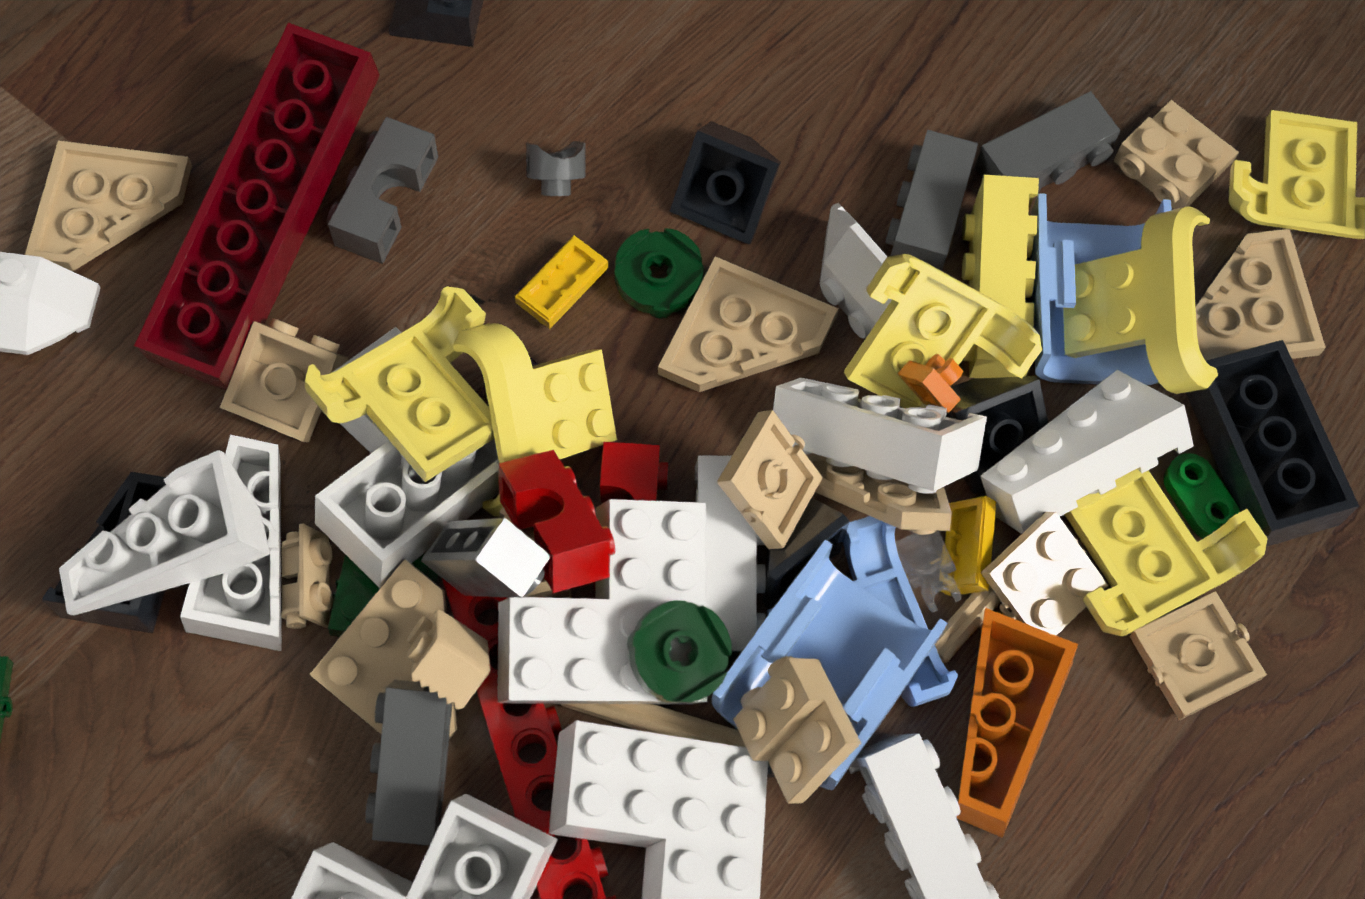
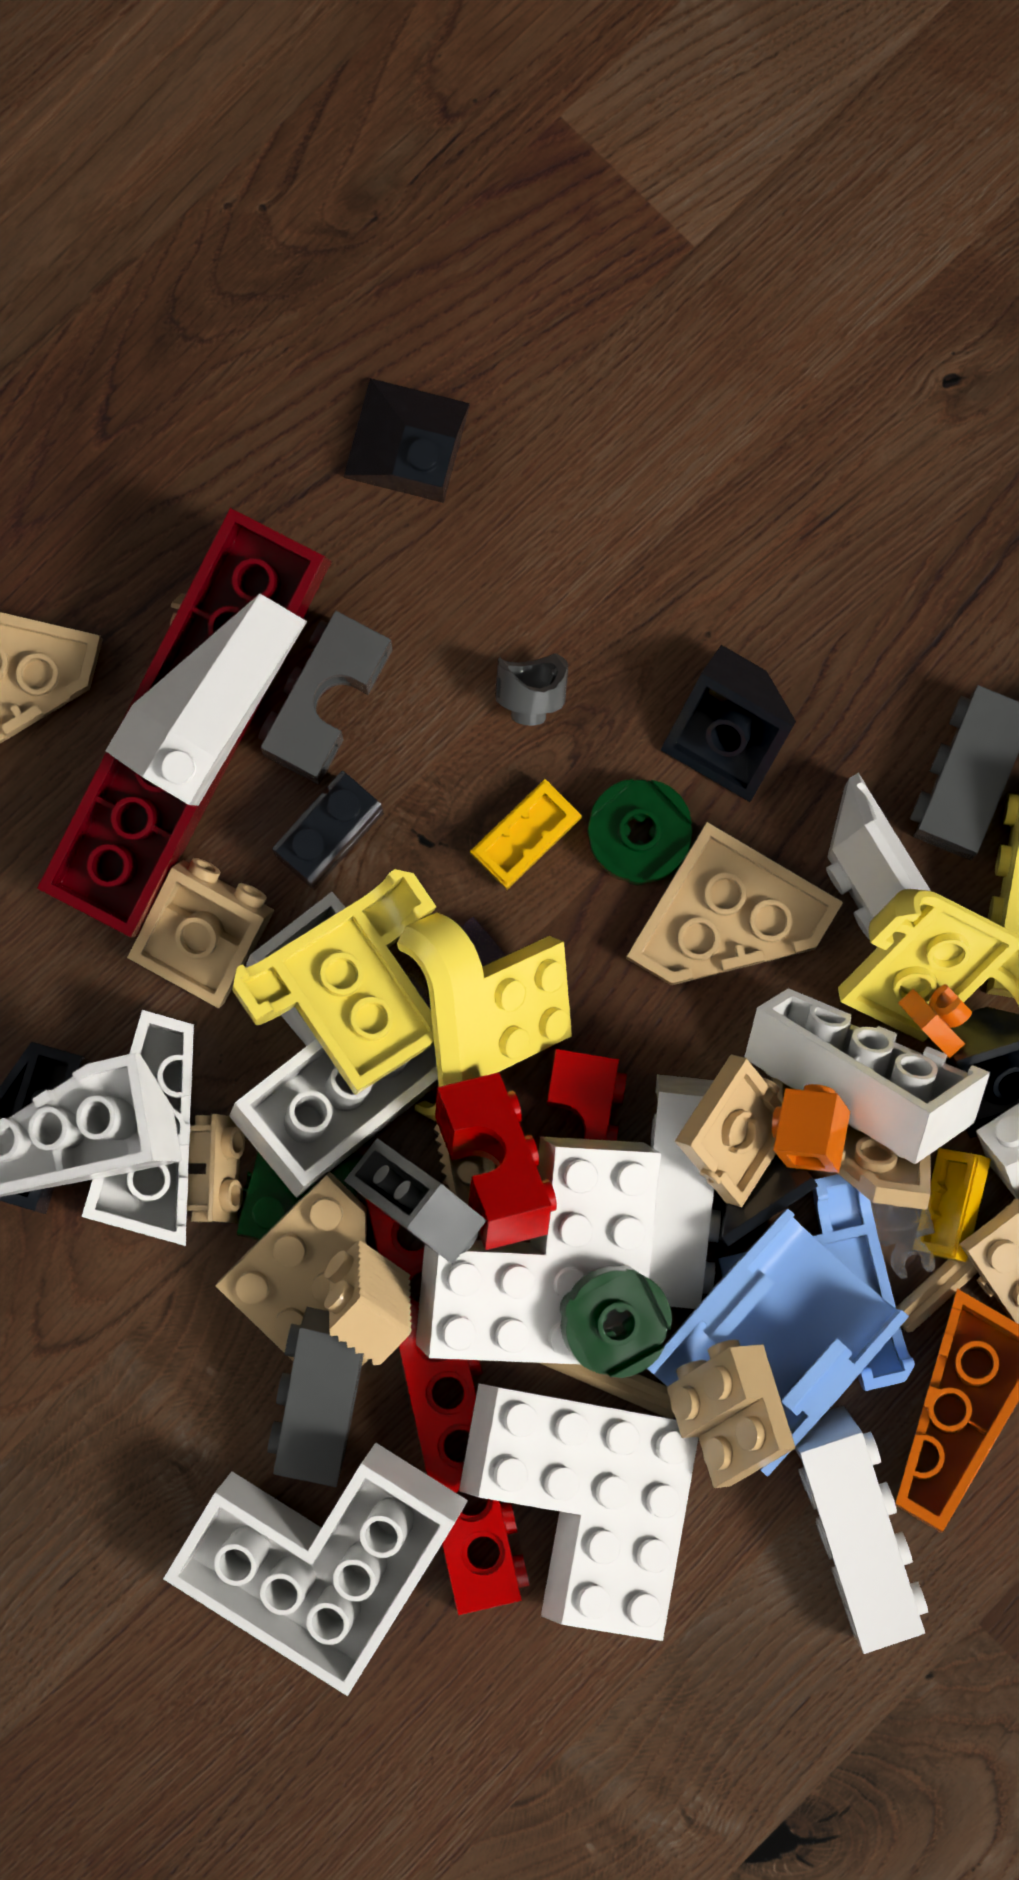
camera: 10 degrees right, 15 degrees up
(272, 179) = (199, 709): none -> white wedge
(391, 288) = (328, 830): none -> black brick
(837, 471) = (811, 1128): none -> orange brick

